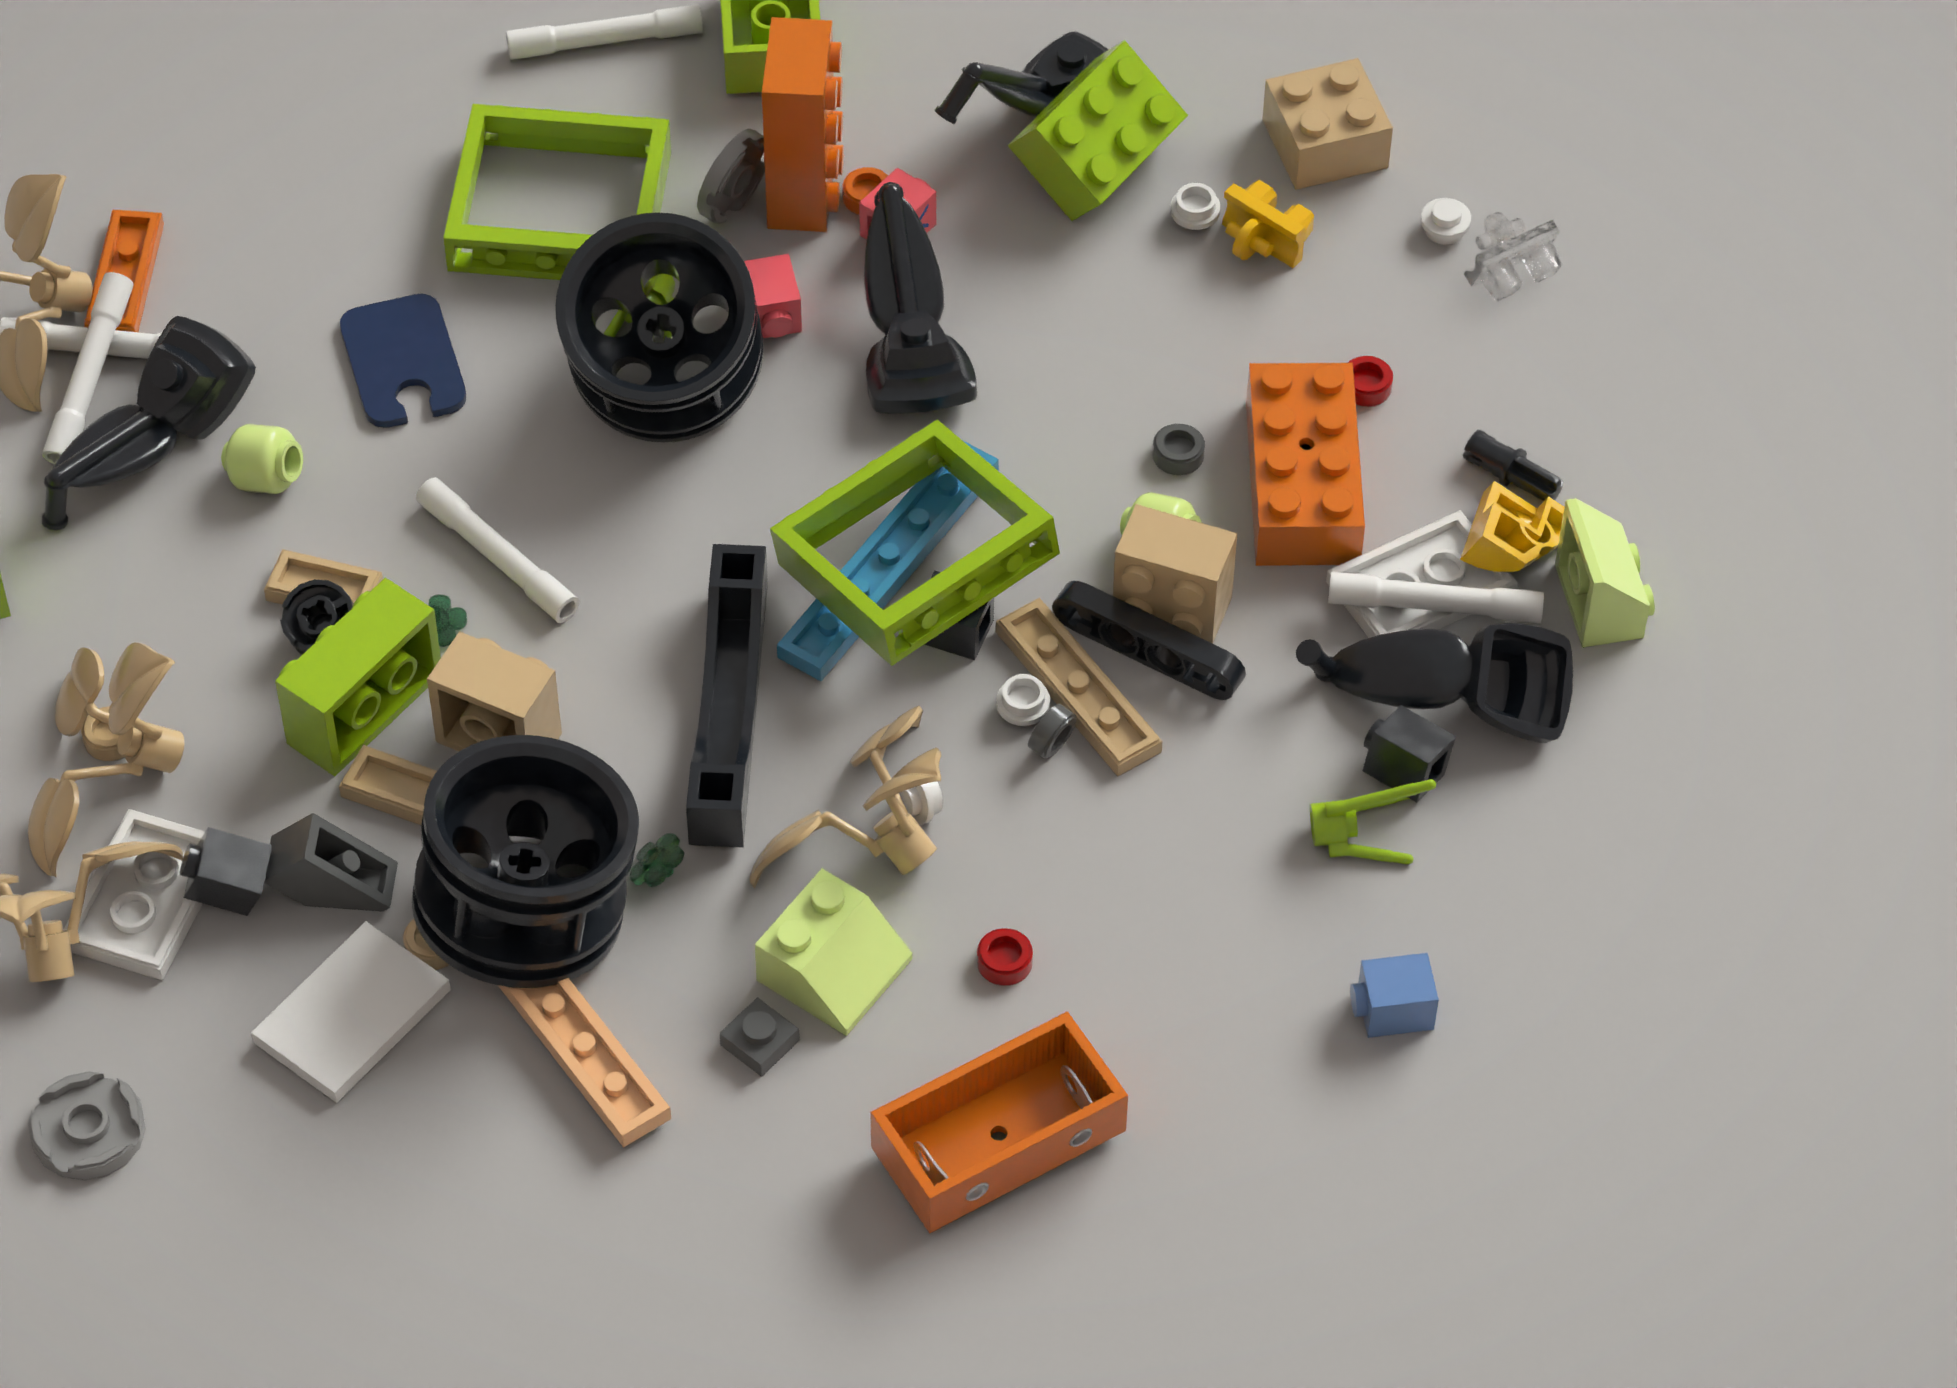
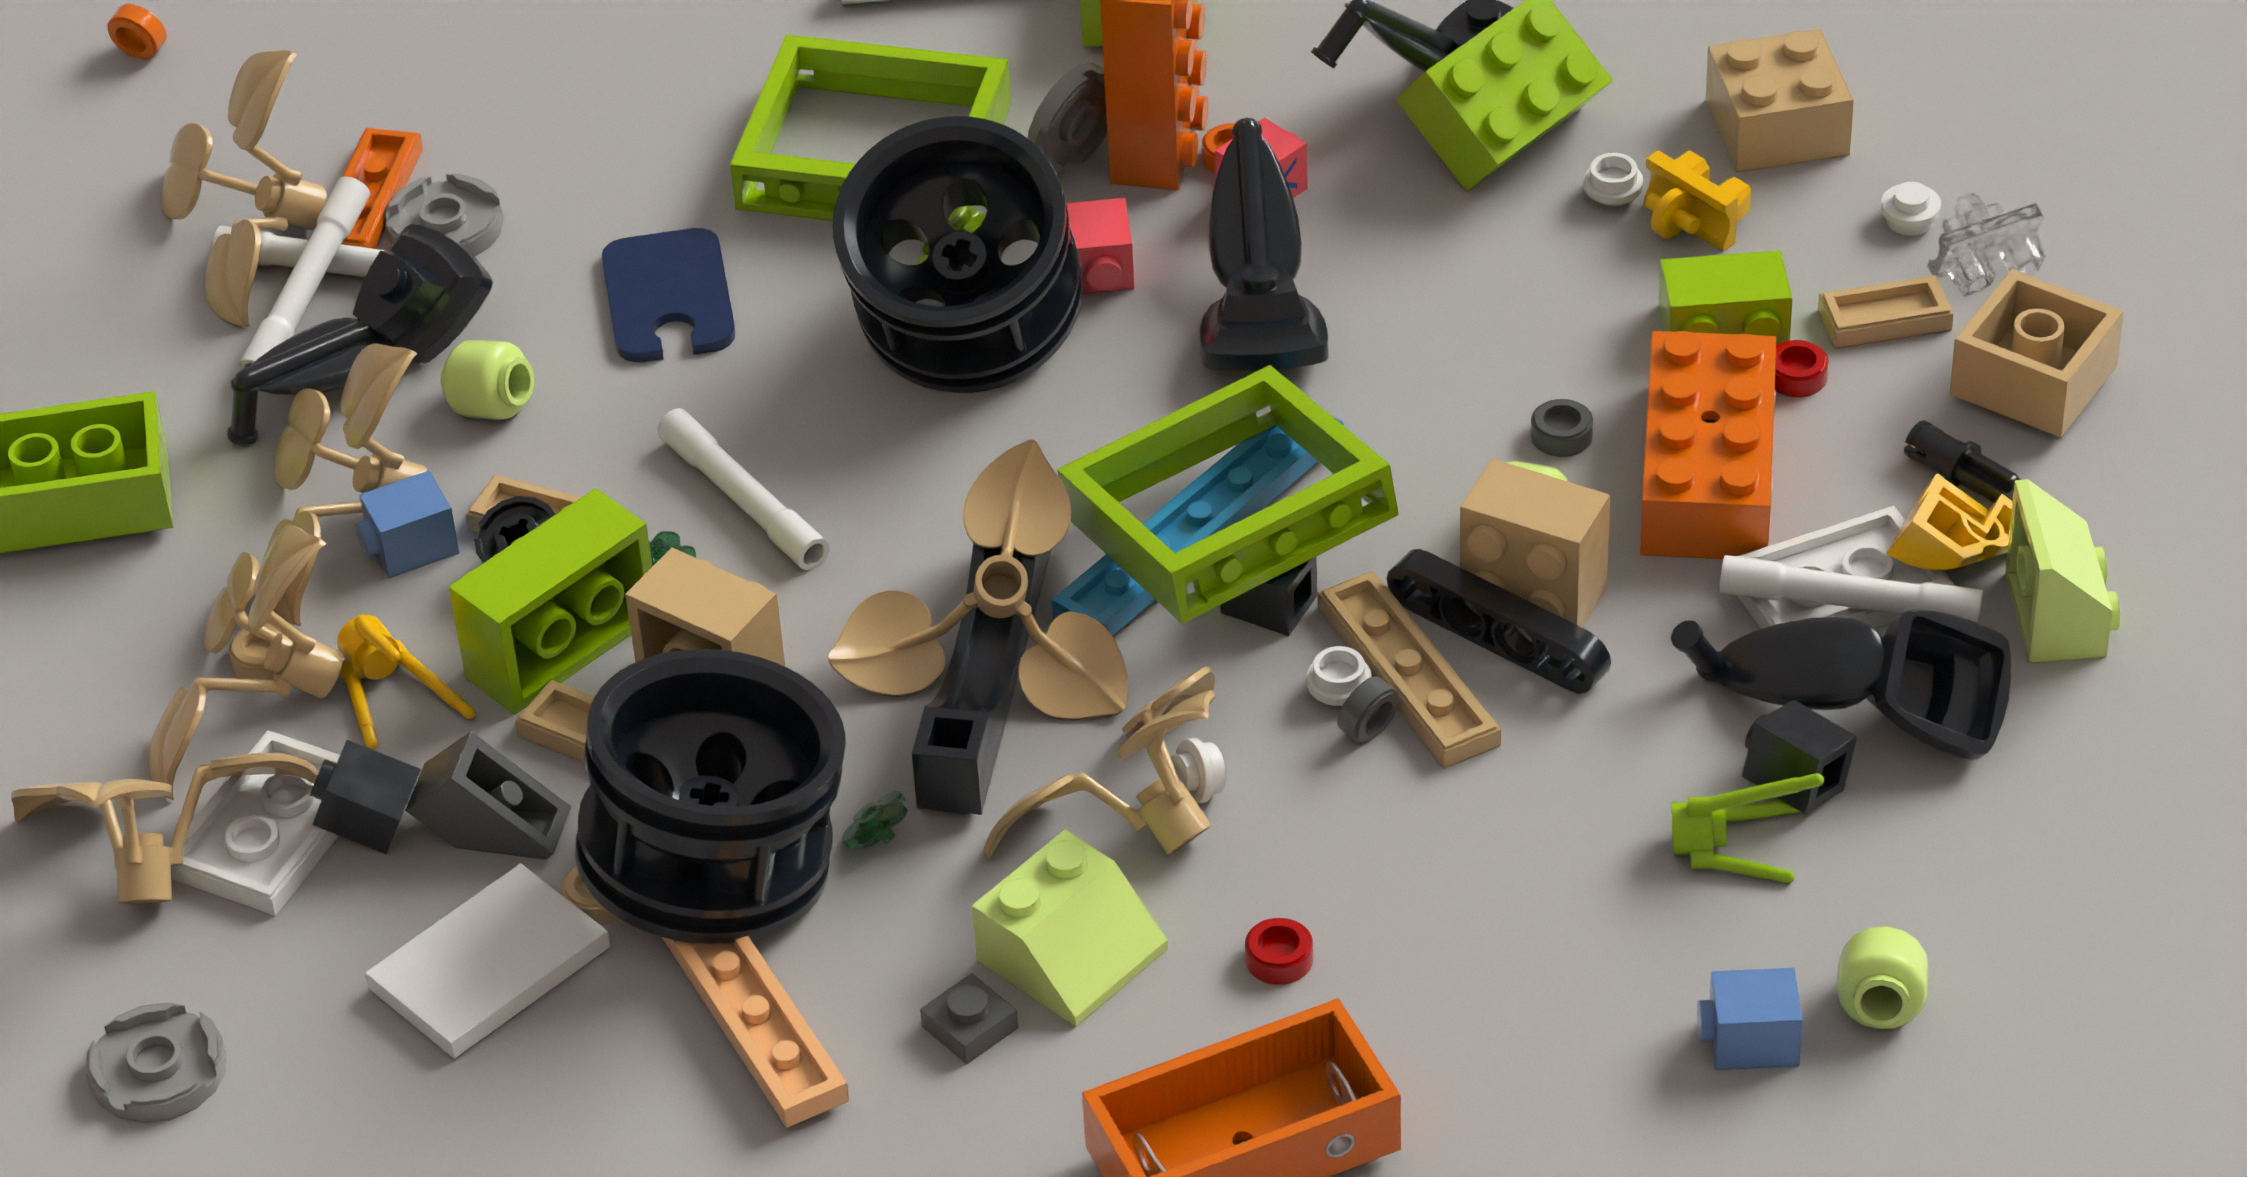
camera: 10 degrees right, 10 degrees down
(178, 506) = (363, 401): none -> tan plant
(196, 288) = (457, 208): none -> light grey tile
(209, 731) = (375, 654): none -> yellow plant
(216, 604) = (407, 524): none -> medium blue brick
(798, 712) = (1070, 670): none -> tan plant
(1303, 322) = (1727, 294): none -> lime brick
(1434, 322) = (1885, 311): none -> tan tile
(1495, 951) = (1882, 978): none -> yellowish green head
(1565, 362) = (2036, 352): none -> tan brick

